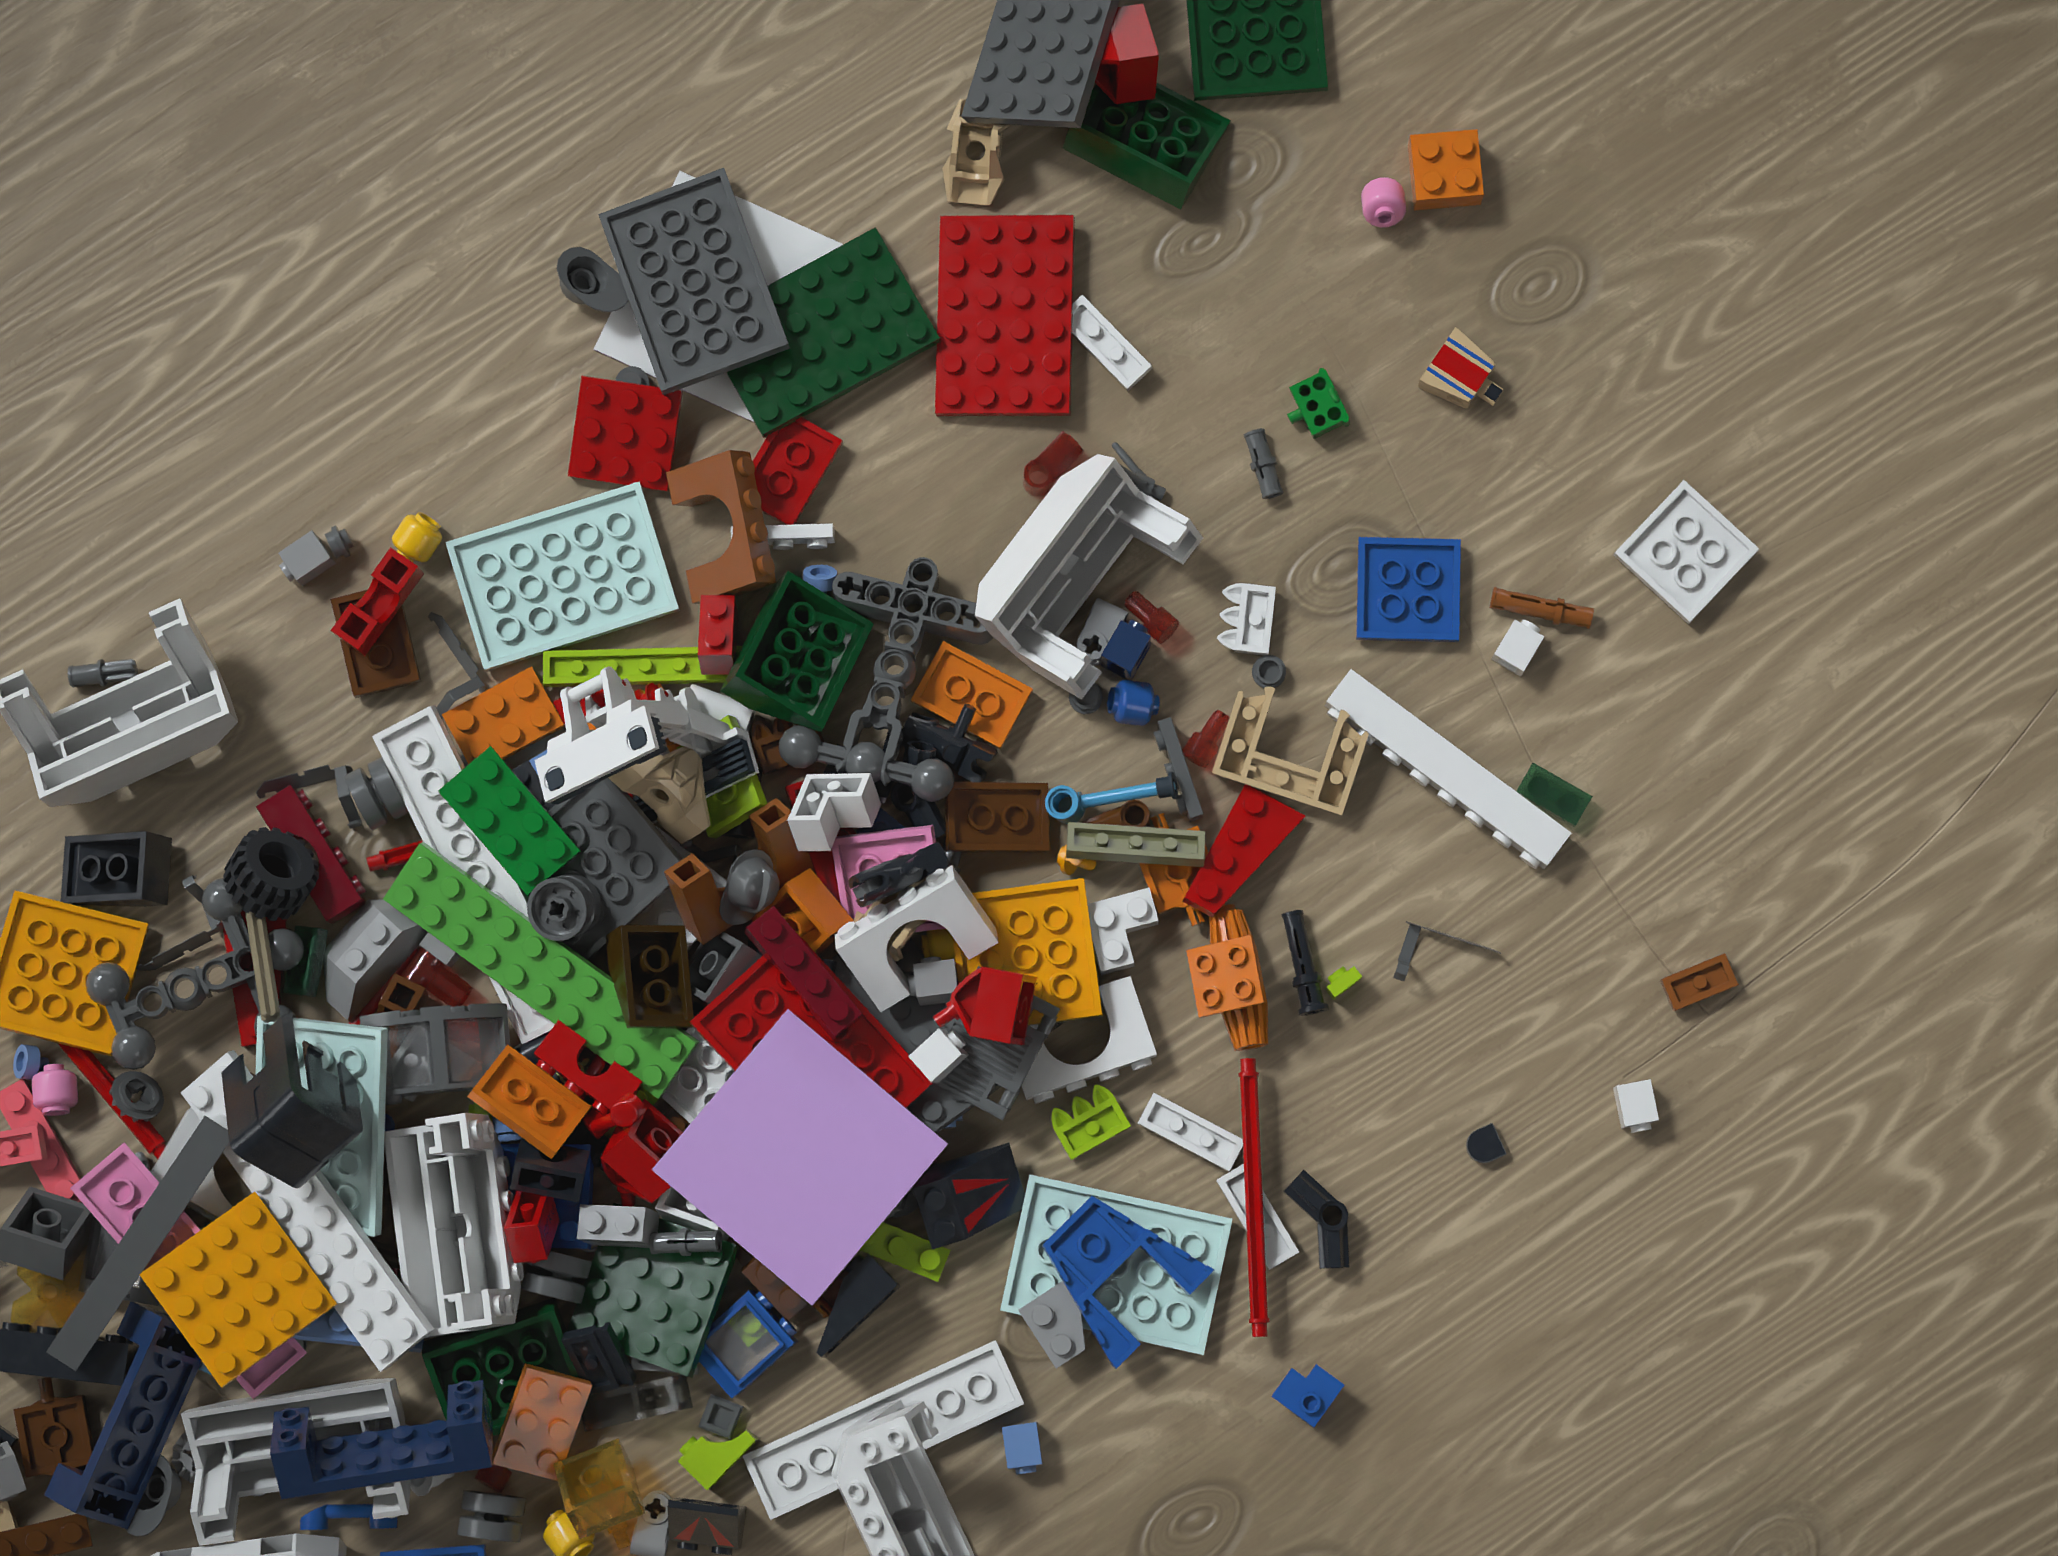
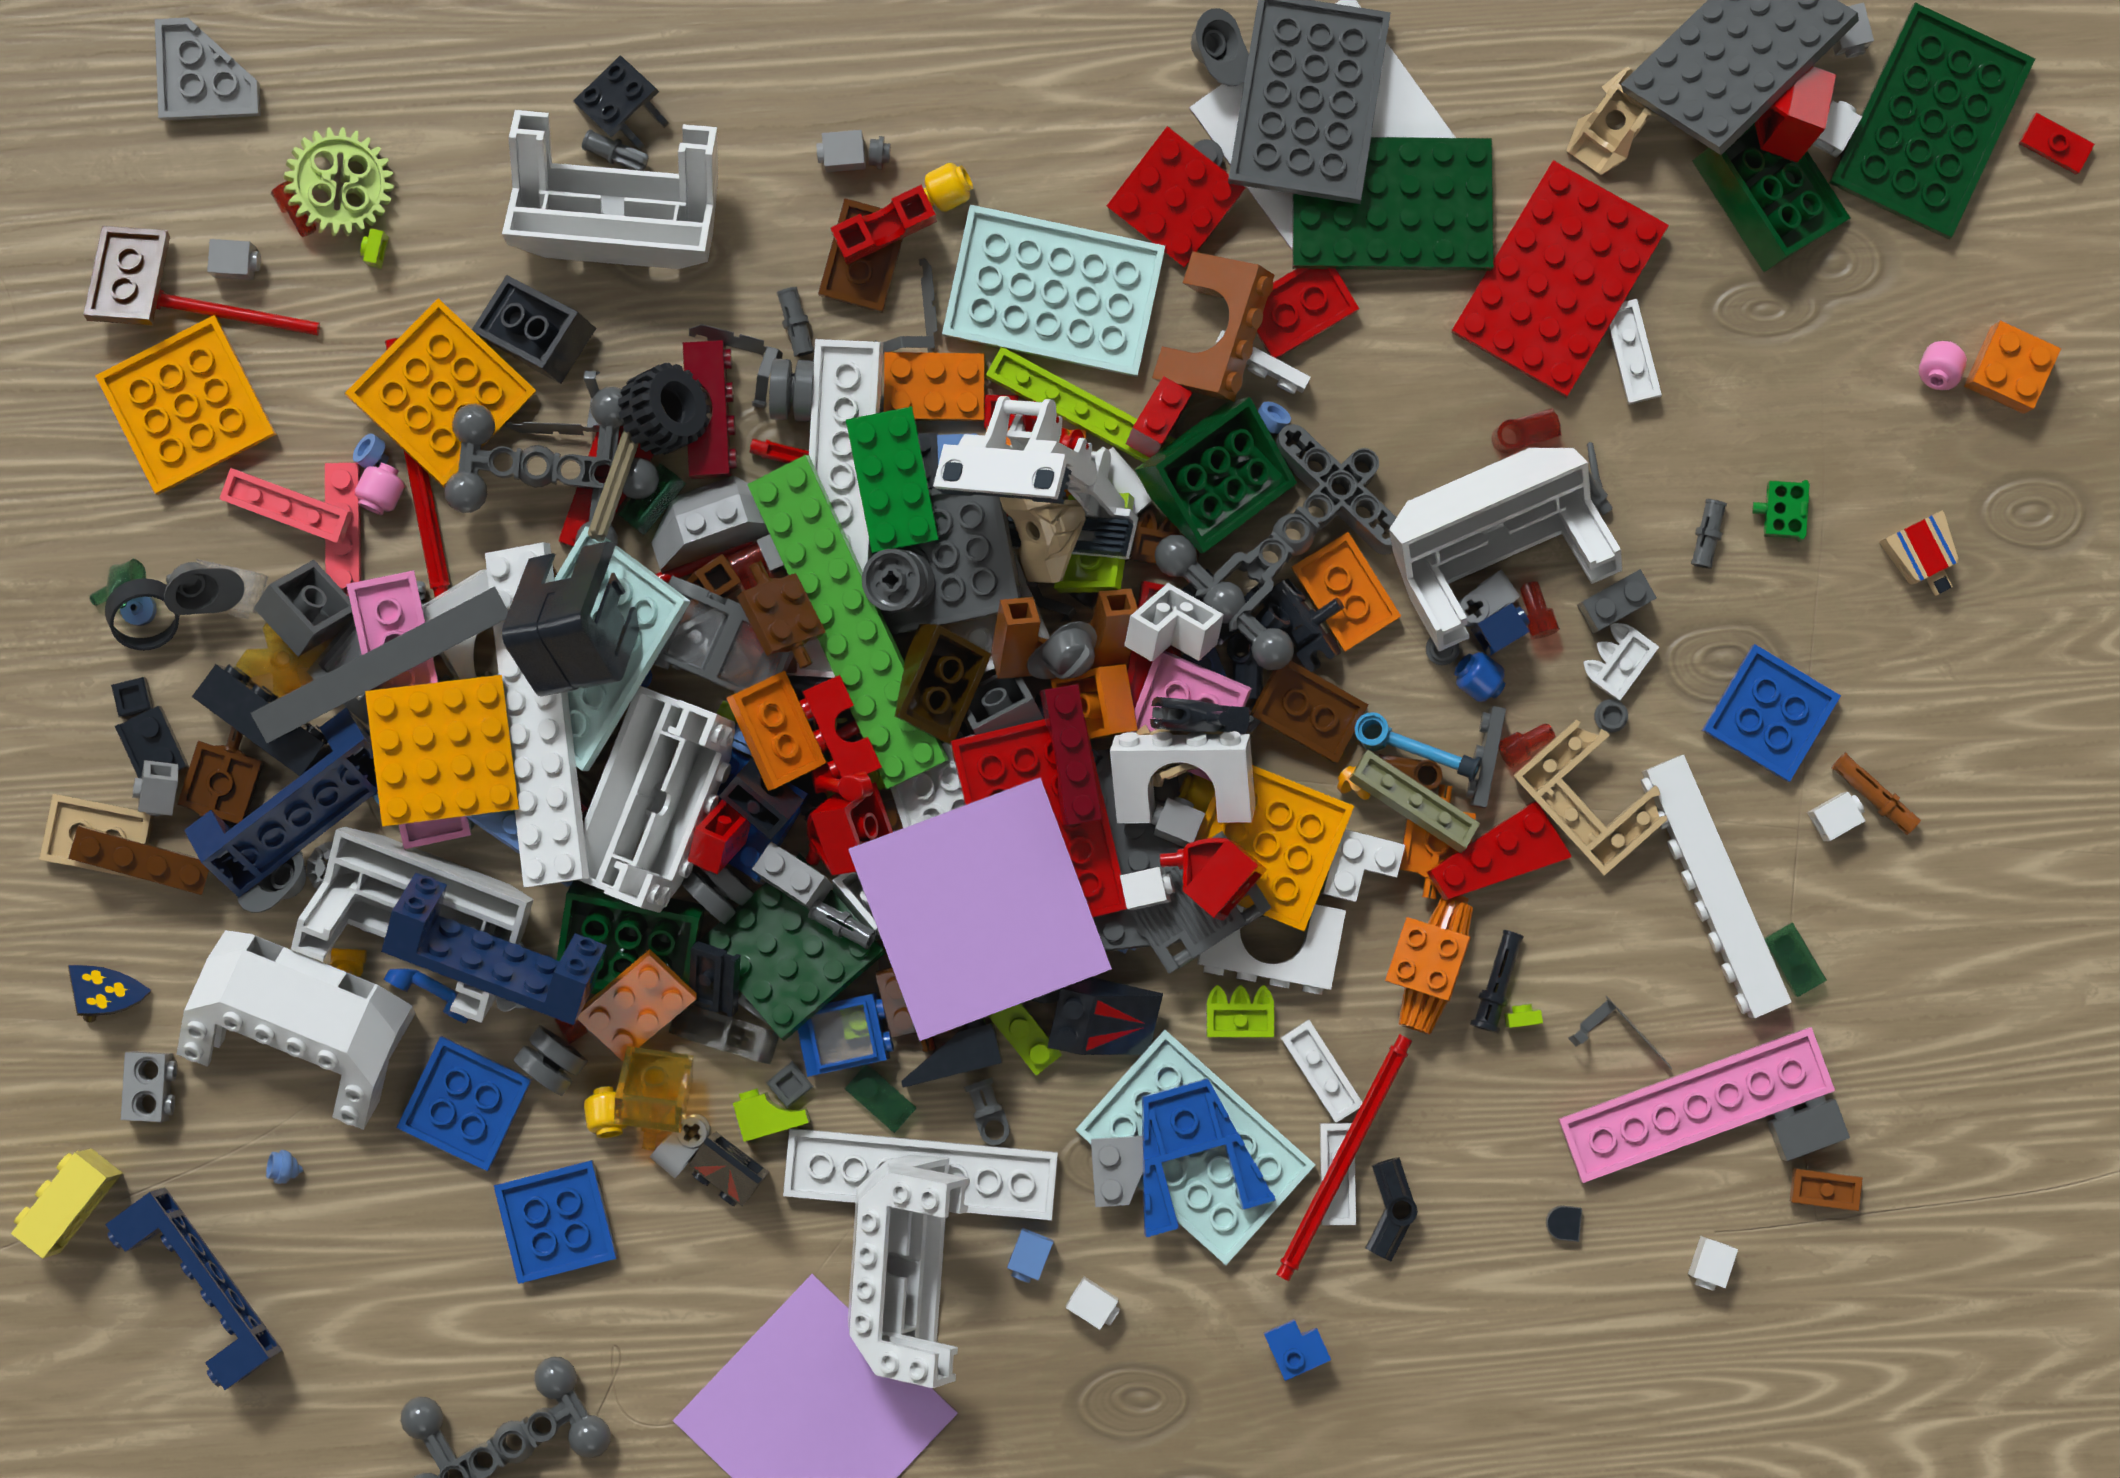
camera: 20 degrees right, 5 degrees up
(77, 623) = (616, 97): none -> black plate
(130, 1083) = (446, 519): dark grey gear -> none
(259, 1528) = (349, 960): none -> light orange plate
(347, 732) = (795, 321): none -> dark grey pin
(476, 995) = (781, 614): none -> reddish brown plate
(809, 1382) = (880, 1098): none -> clear green plate
(913, 1340) = (984, 1113): none -> dark grey connector
(1104, 1458) = (1093, 1304): none -> white brick
(1173, 49) = (1839, 128): none -> white brick
(1215, 568) = (1616, 601): none -> dark grey brick
(1541, 973) = (1696, 1104): none -> bright pink plate
(1651, 937) = (1807, 1128): none -> dark grey brick
(1686, 551) = (2027, 815): white plate -> none

